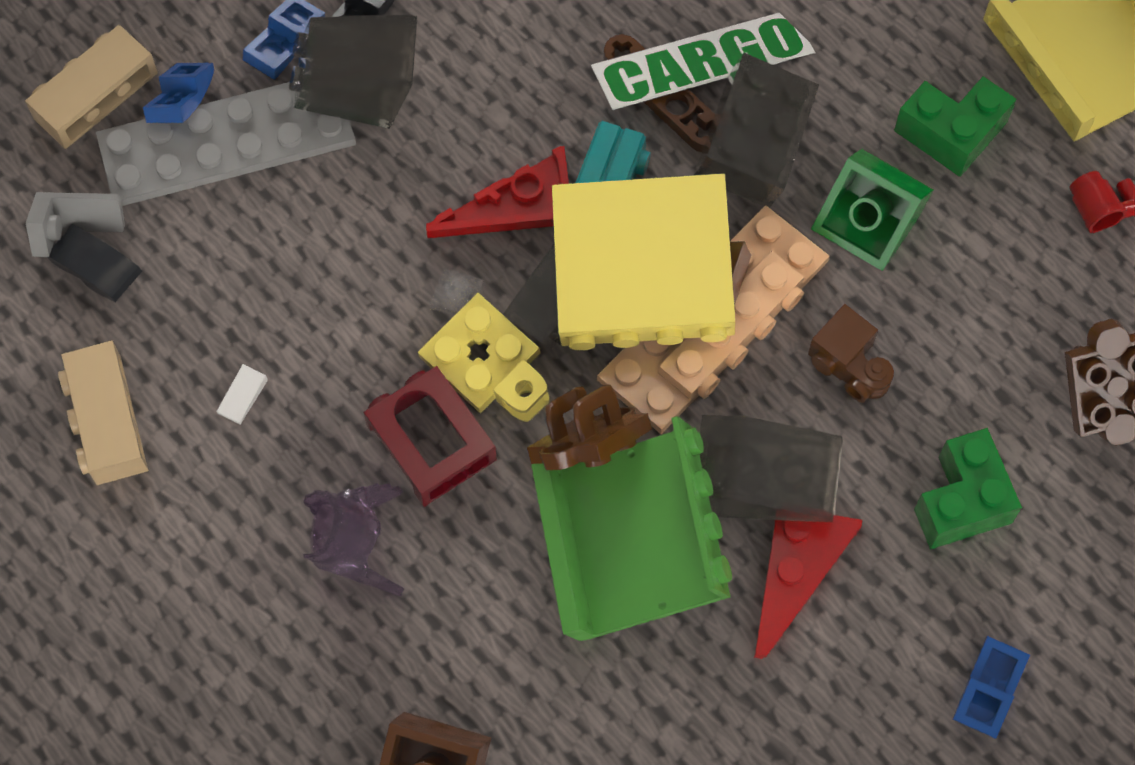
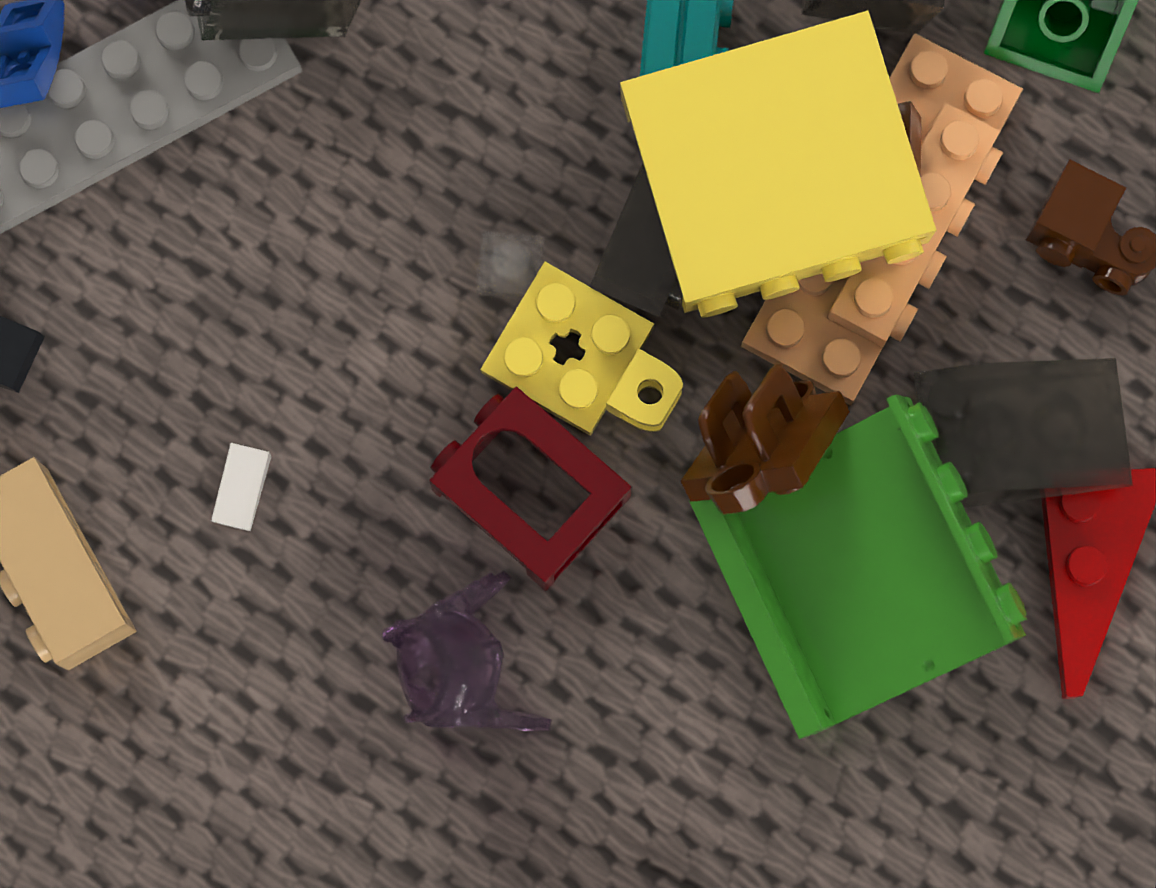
camera: 15 degrees left, 10 degrees up
(509, 203) = (556, 111): red wing -> none

